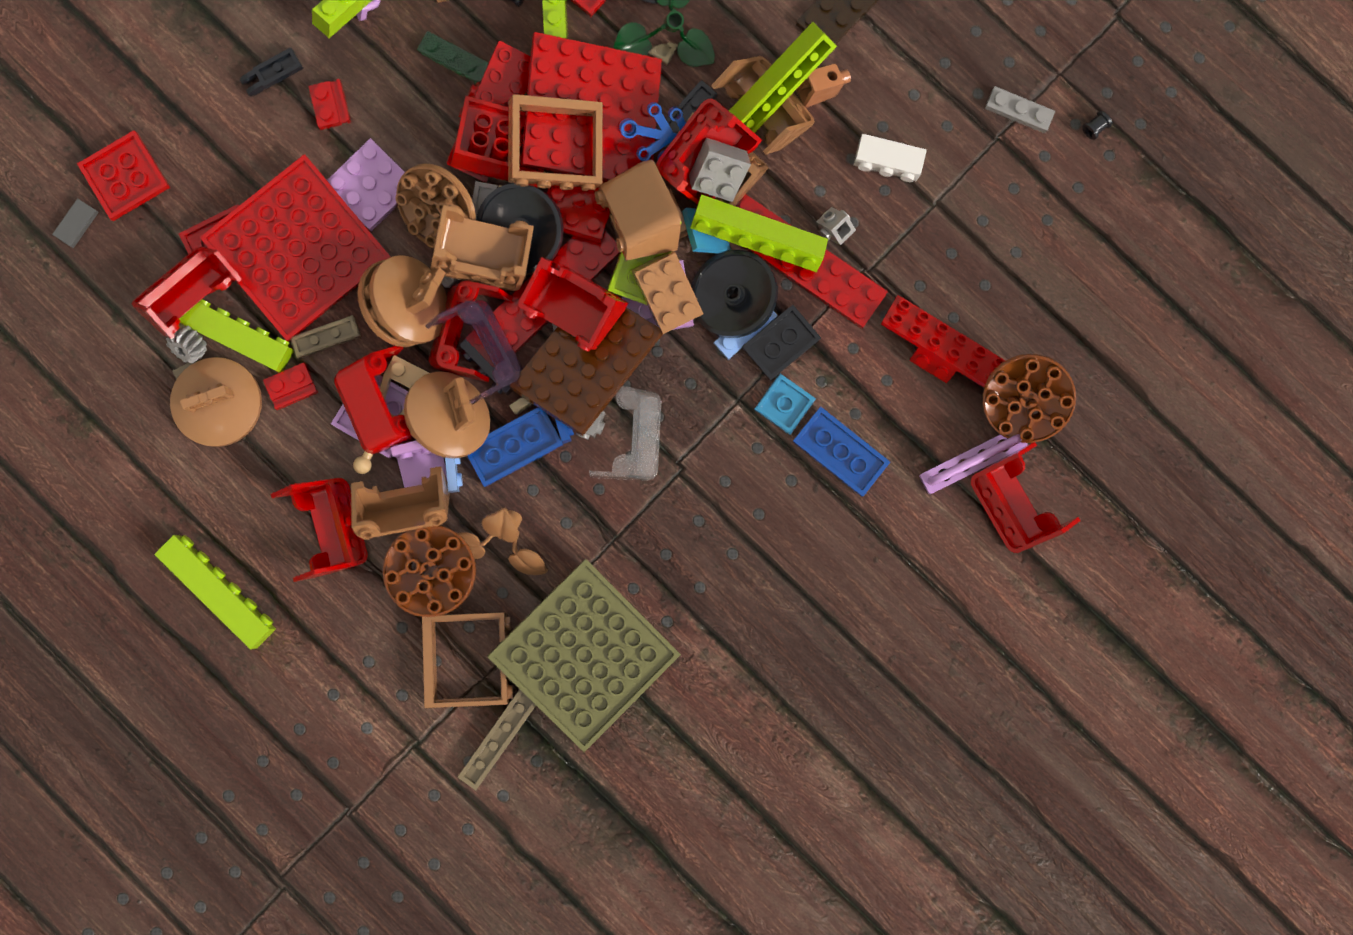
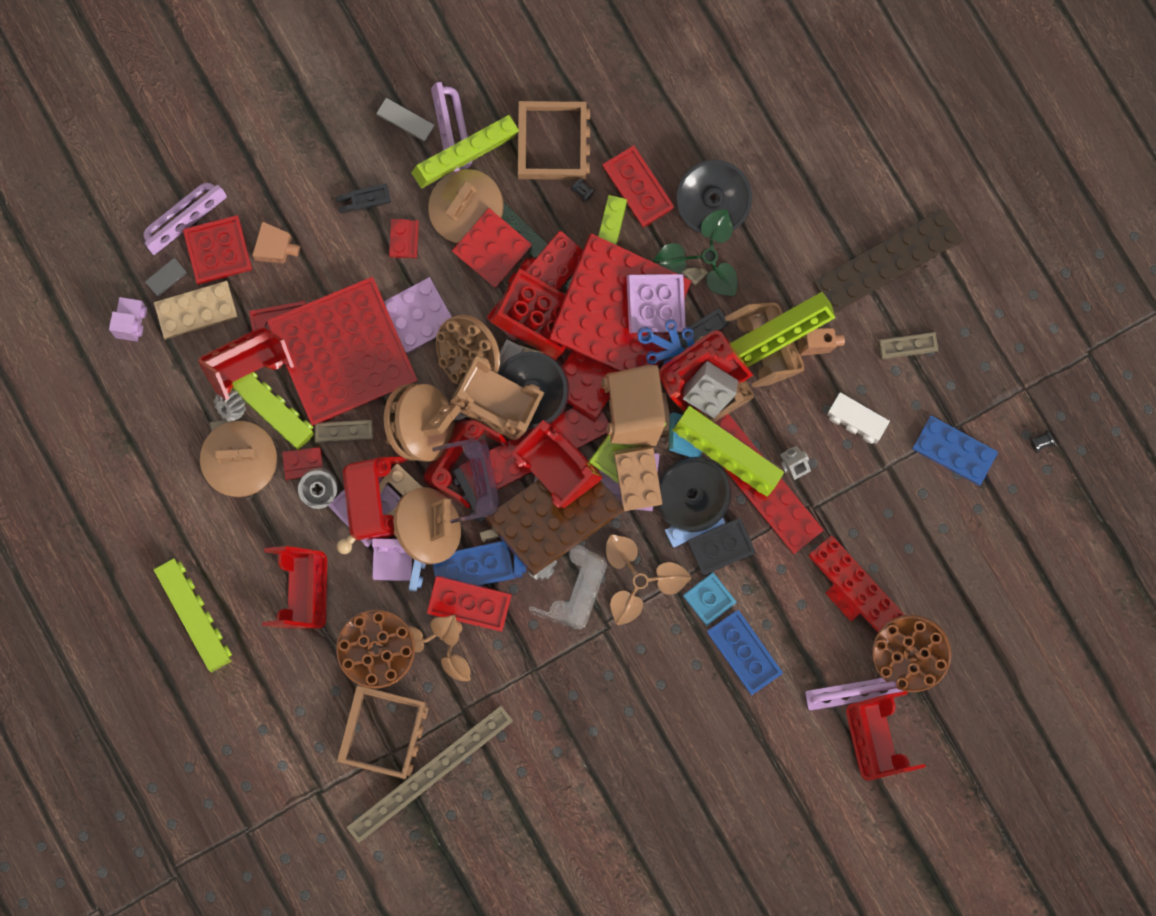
camera: 20 degrees right, 5 degrees down
(43, 283) = (127, 320): none -> lavender brick
(70, 147) = (155, 243): none -> lavender piece
(119, 250) = (195, 310): none -> tan plate
(184, 152) = (274, 245): none -> nougat torso
(309, 420) = (310, 496): none -> light grey brick
(387, 47) = (461, 200): none -> medium nougat bracket
(400, 509) = (367, 591): medium nougat windscreen -> none
(429, 83) = (491, 247): none -> red plate
(520, 487) = (469, 603): none -> red plate
(557, 106) = (562, 357): medium nougat window -> none
(584, 655) = (481, 757): olive plate -> none
(627, 89) = (654, 301): none -> lavender plate
(697, 439) = (626, 606): none -> medium nougat plant
(920, 63) = (908, 345): none -> dark tan tile
(1004, 163) = (955, 450): none -> blue plate
(1020, 109) = (981, 409): light grey plate -> none

